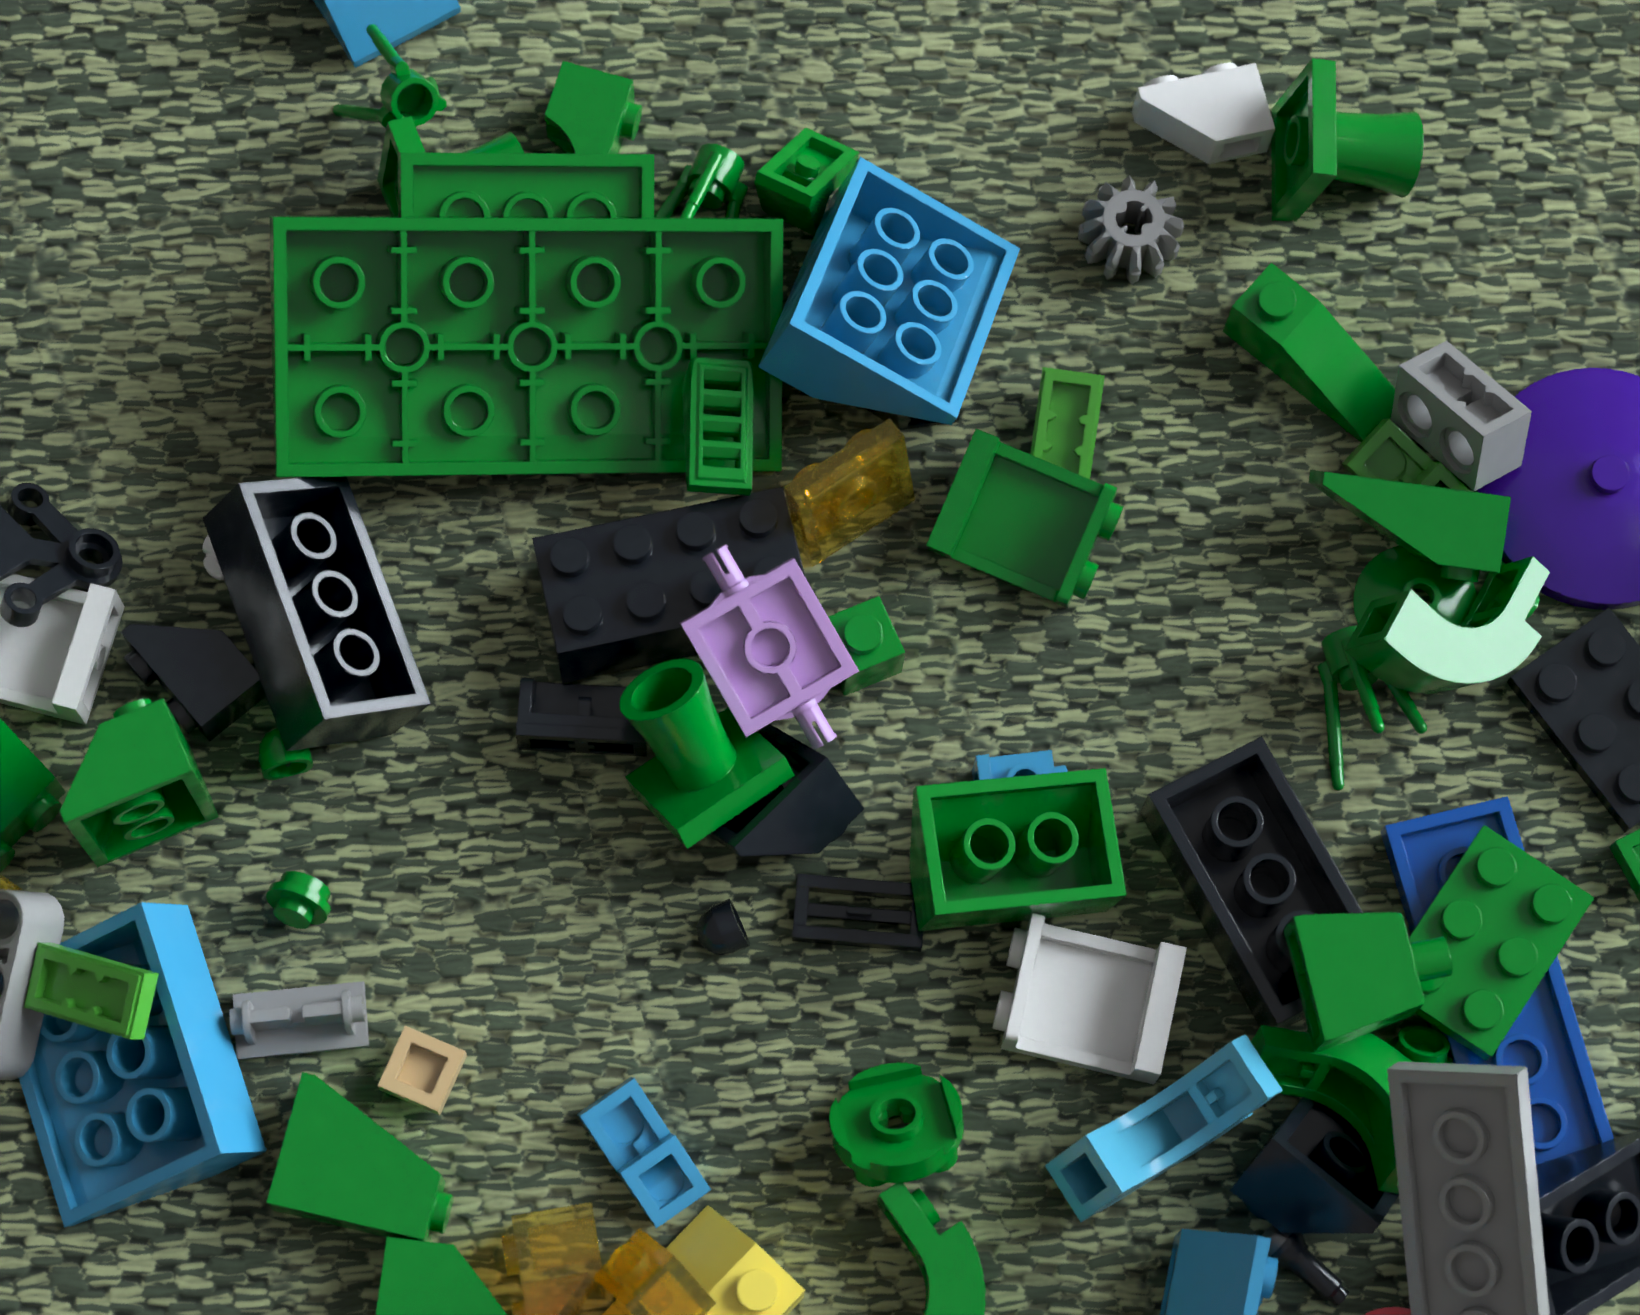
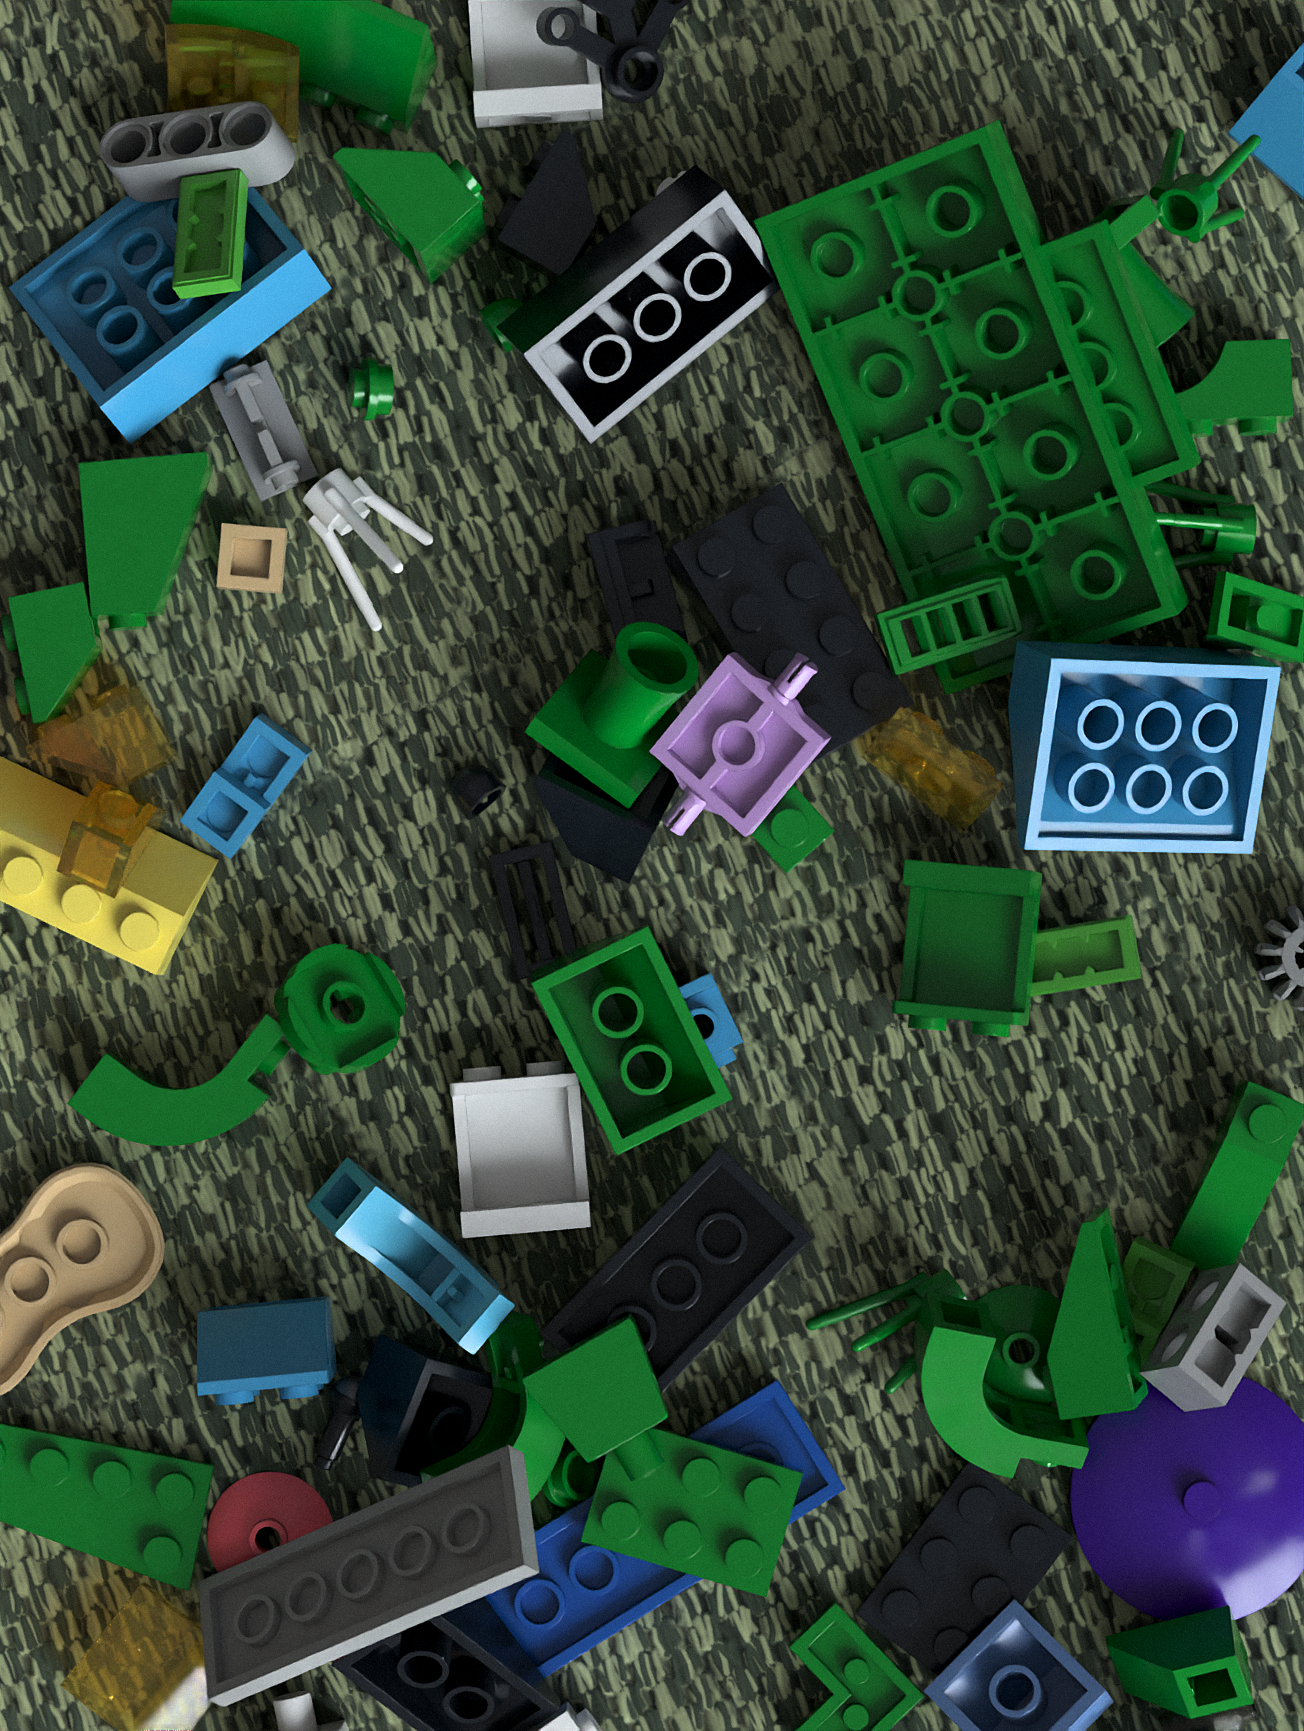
camera: 80 degrees right, 15 degrees up
(402, 964) = (340, 506): none -> white plant

